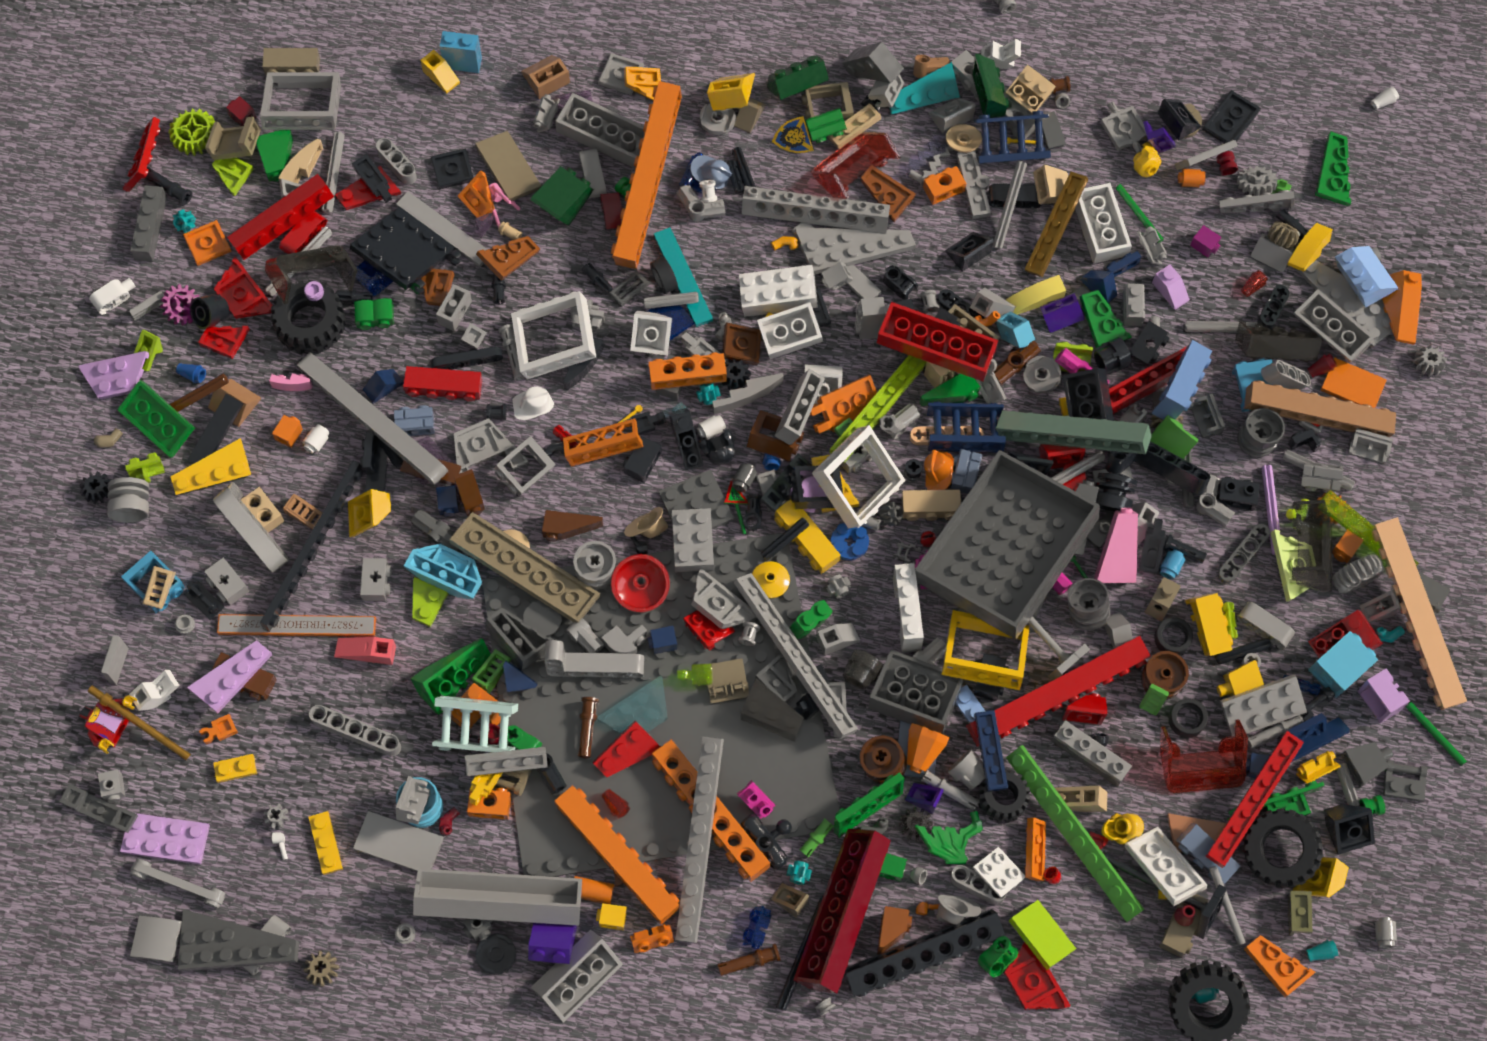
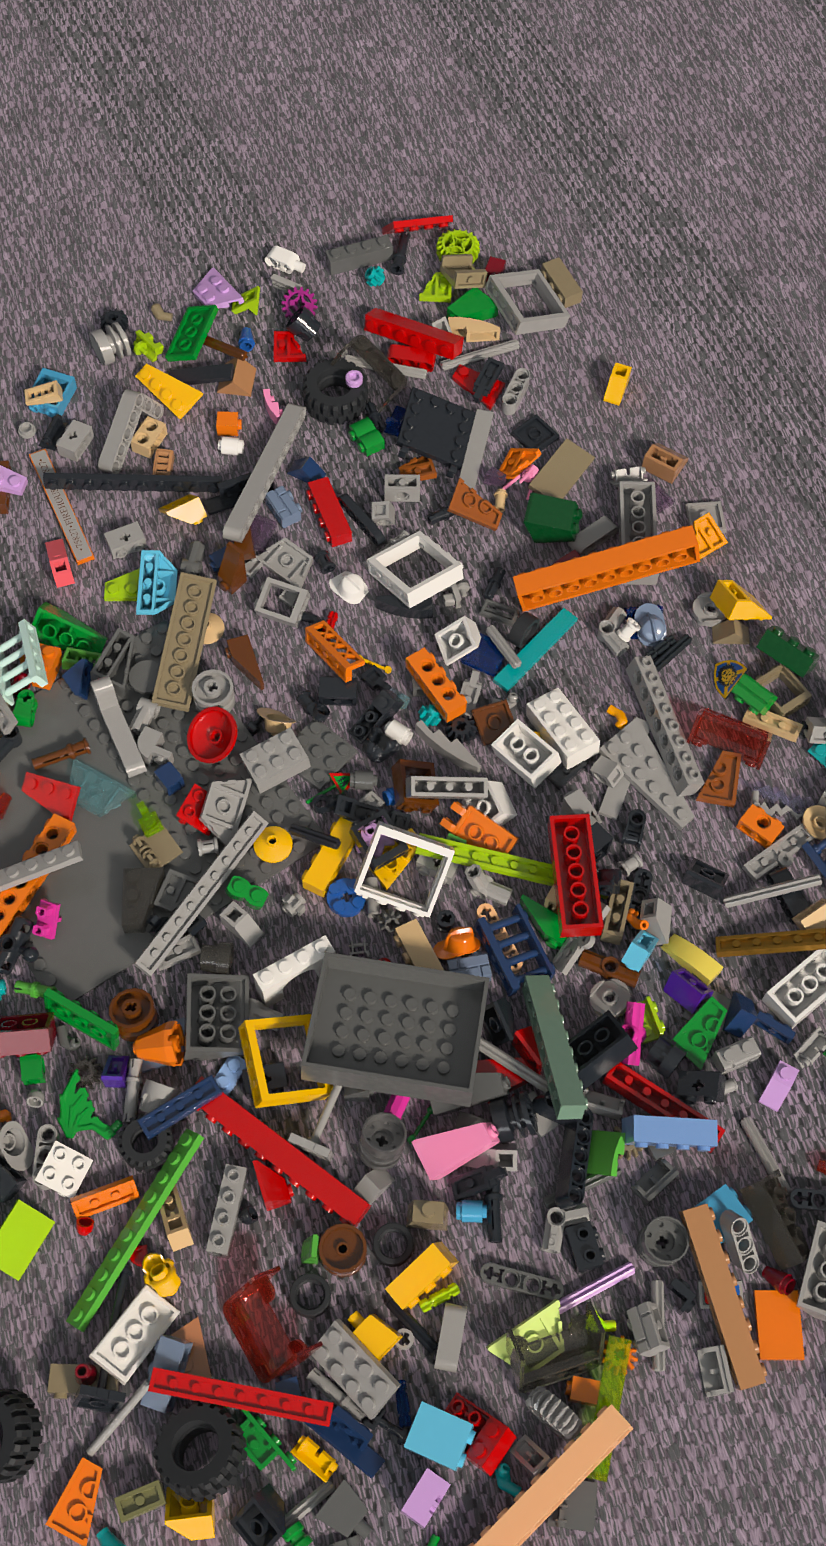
camera: 65 degrees right, 5 degrees down
(207, 243) = (365, 299): orange tile -> none
(242, 292) = (333, 338): red wing -> none
(461, 51) = (642, 387): dark azure brick -> none
(655, 484) = (313, 707): none -> black connector

